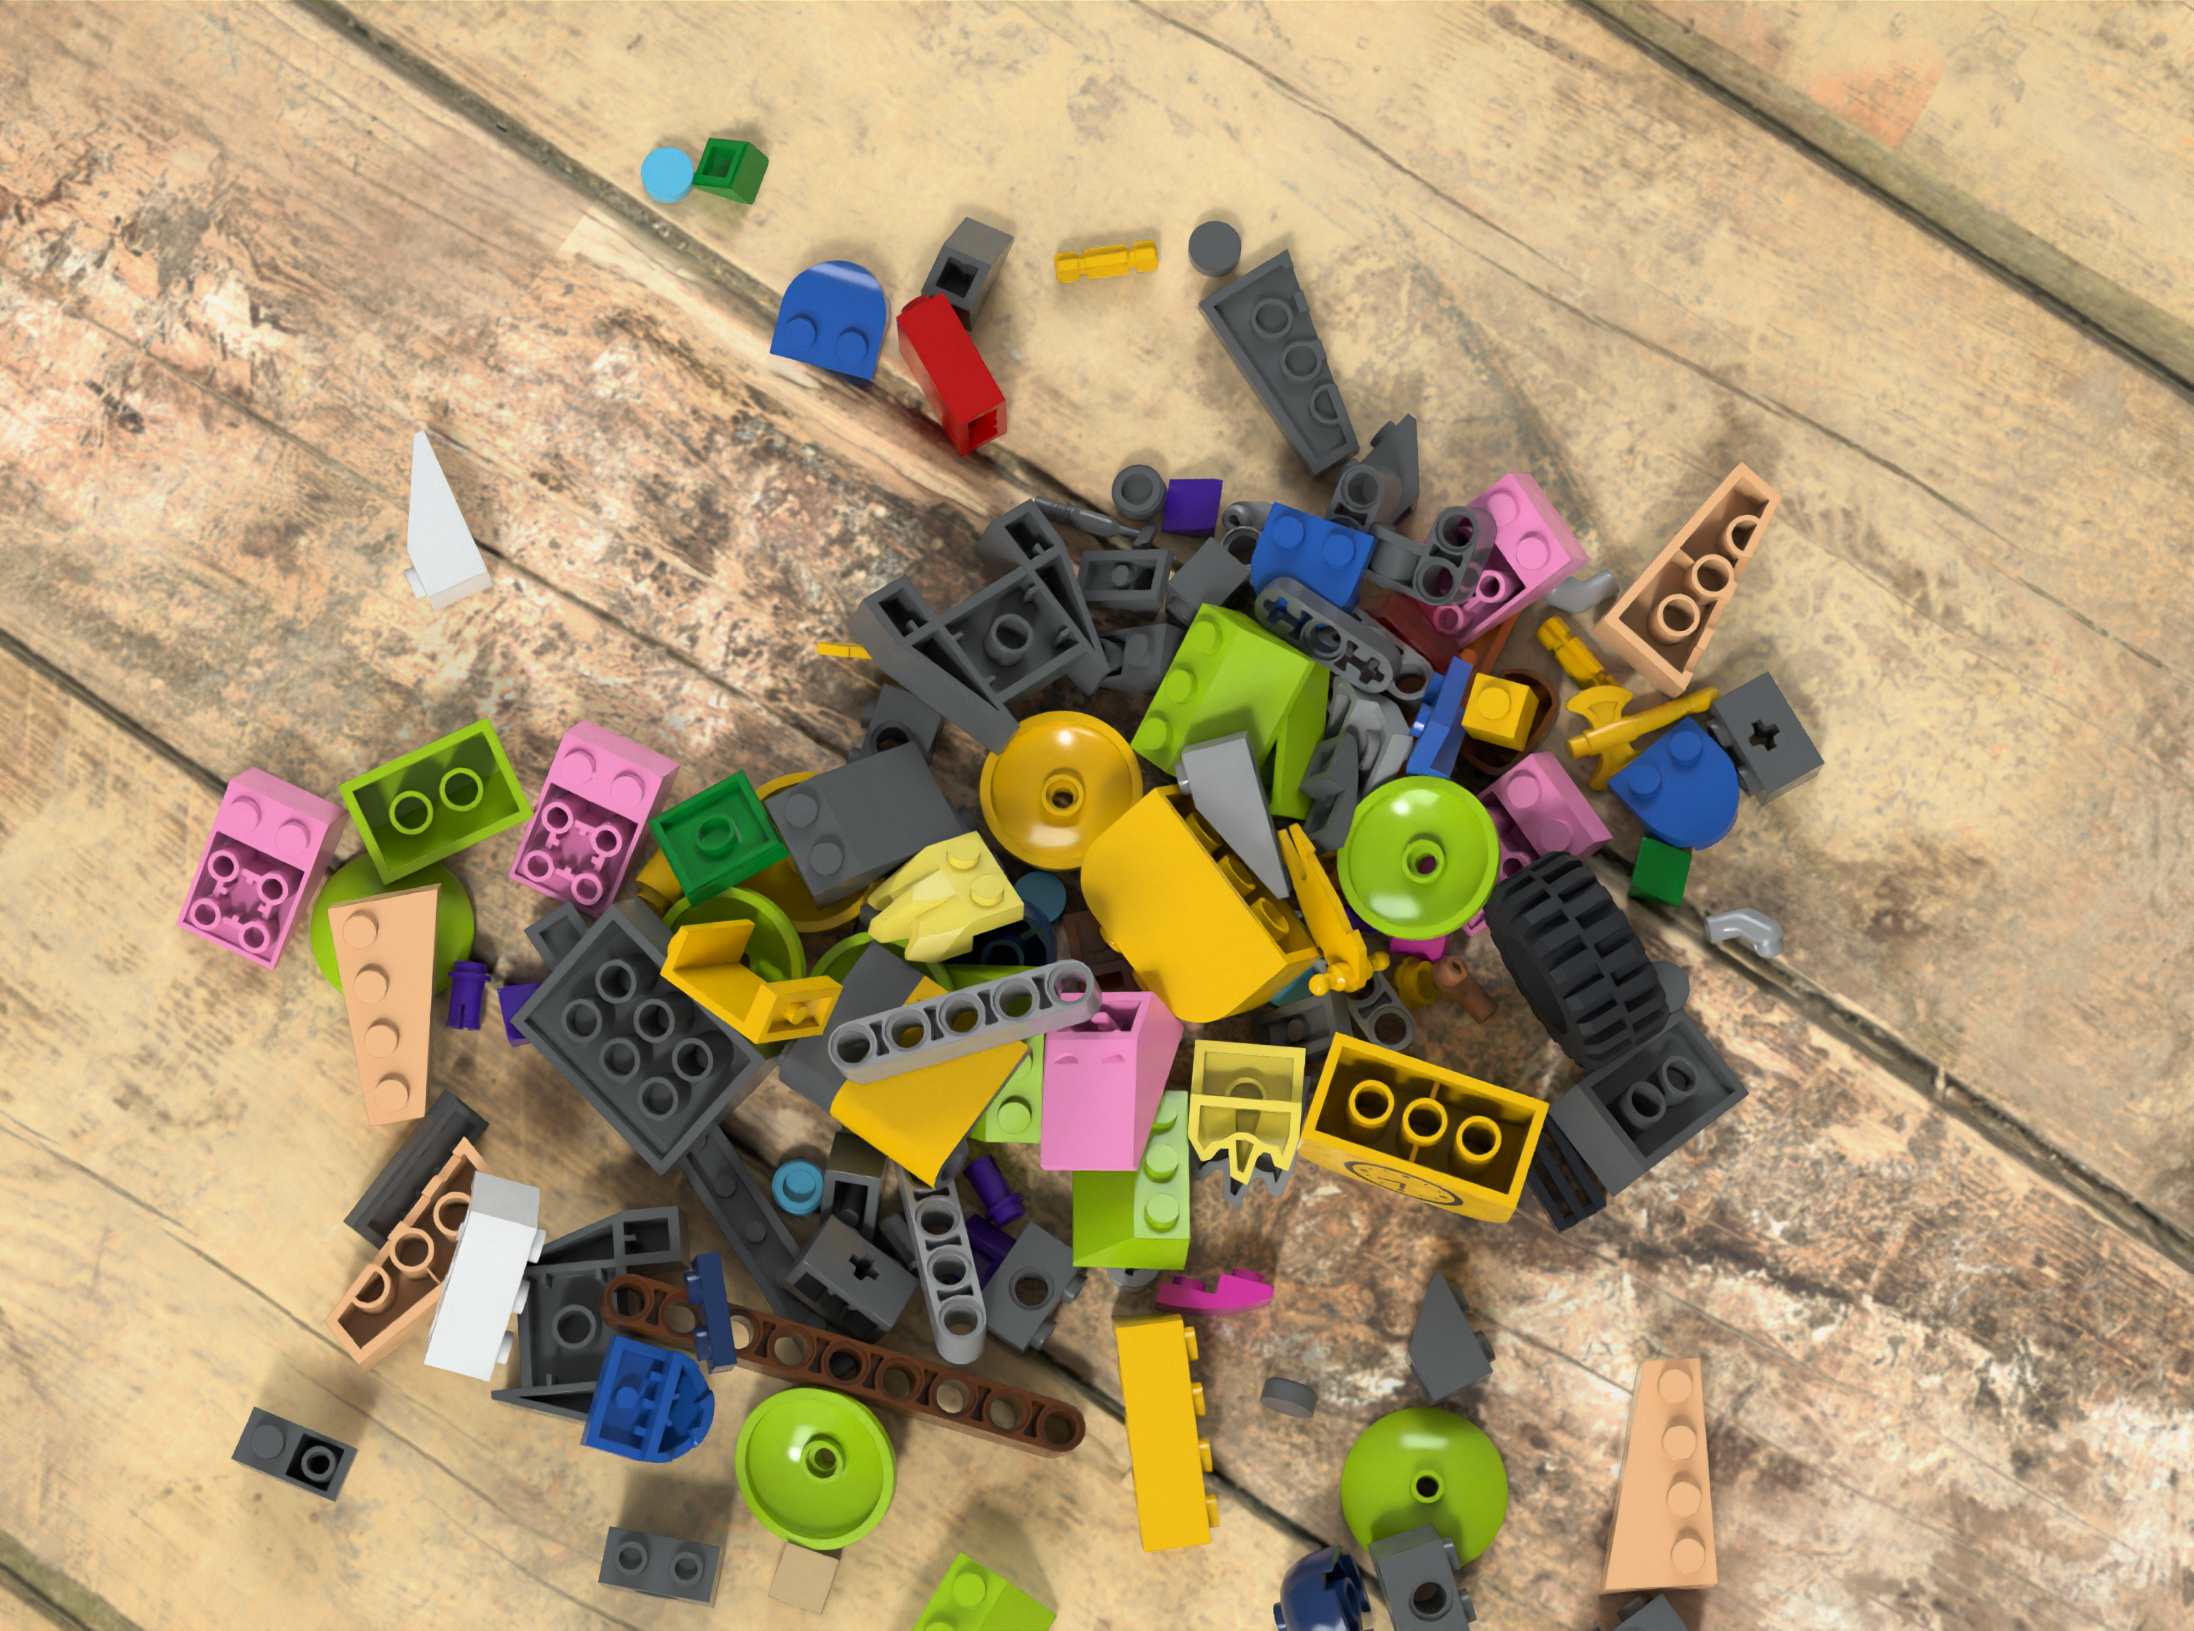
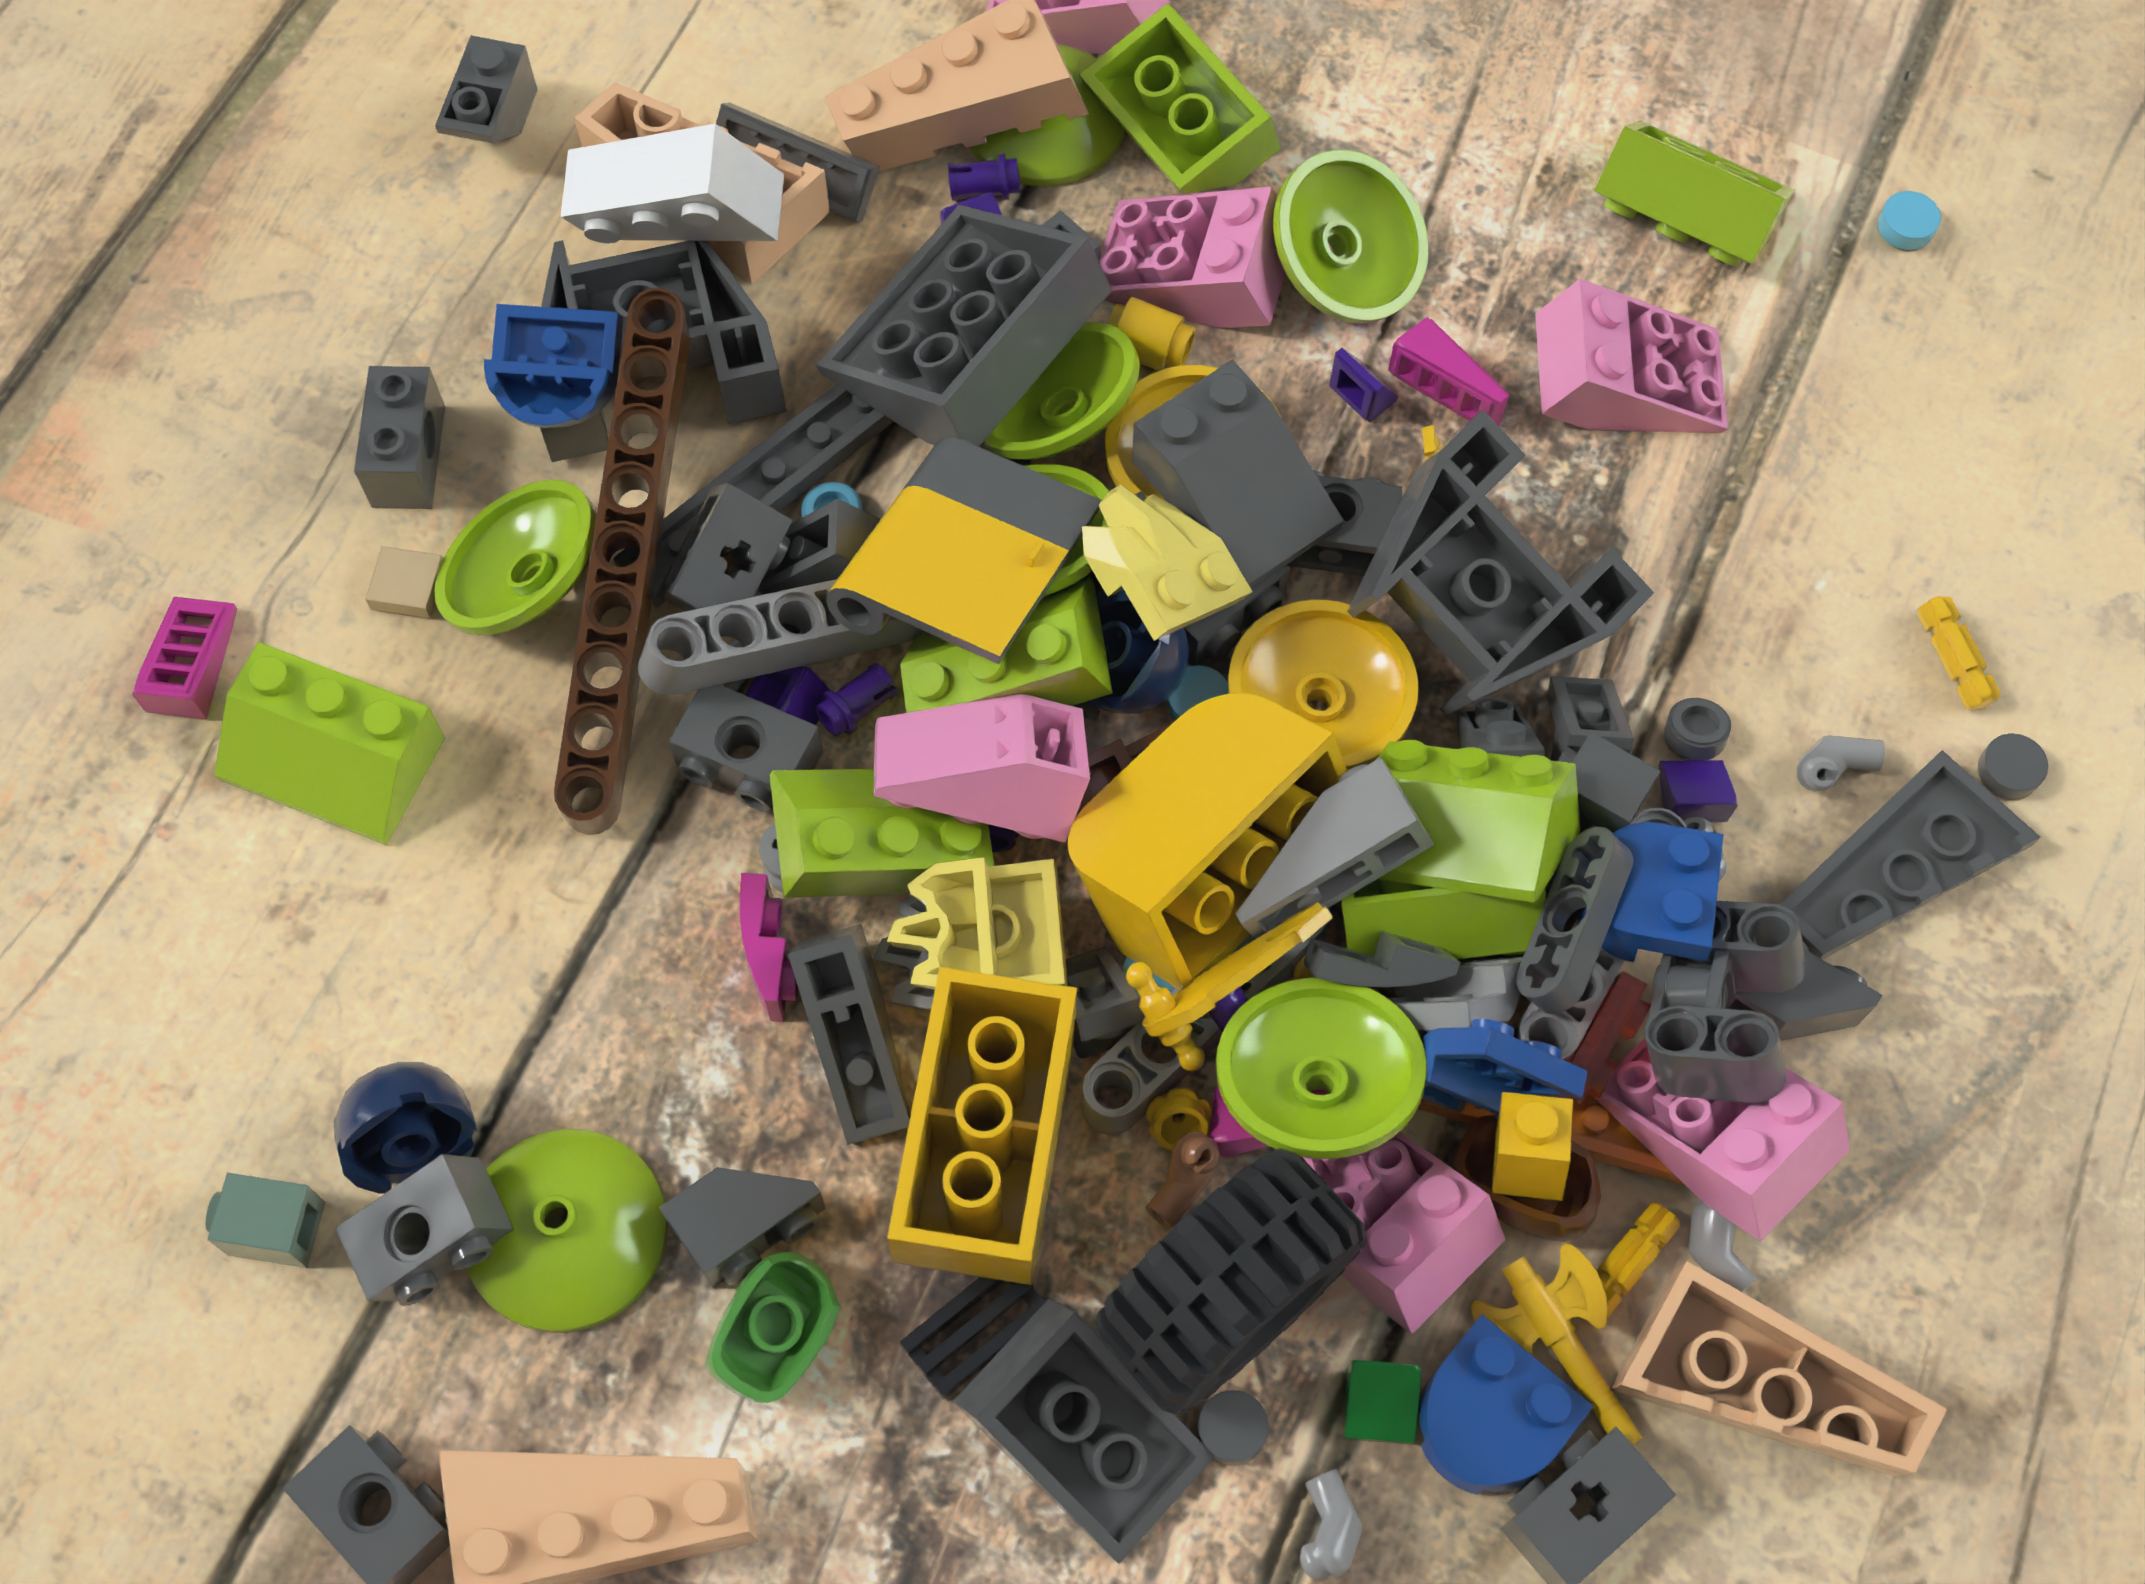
camera: 80 degrees right, 10 degrees down
(438, 538) = (1465, 73): white slope -> none
(607, 354) = (1692, 193): none -> lime slope
(616, 653) = (1367, 221): none -> lime dish
(707, 968) = (1016, 362): yellow panel -> none
(714, 1337) = (665, 379): dark blue plate -> none
(717, 838) = (1184, 340): green tile -> none
(731, 170) = (1935, 279): green slope -> none
(754, 695) = (1360, 386): none -> dark purple slope
(757, 622) = (1444, 372): none -> dark pink slope
(781, 459) = (1627, 364): none -> bright pink slope
(834, 319) = (1802, 392): blue slope -> none
(940, 1012) = (1014, 579): light grey beam -> none
(951, 373) = (1774, 497): red brick -> none
(968, 268) = (1896, 502): dark grey slope -> none
(1096, 522) = (1648, 689): dark grey piece -> none
(1164, 1431) = (593, 903): yellow wedge -> none
(1182, 390) = (1833, 755): none -> light grey arm
(1289, 1397) = (655, 1049): dark grey tile -> none
(1298, 1233) = (851, 1032): none -> dark grey slope
(1538, 1325) = (773, 1327): none -> bright green piece

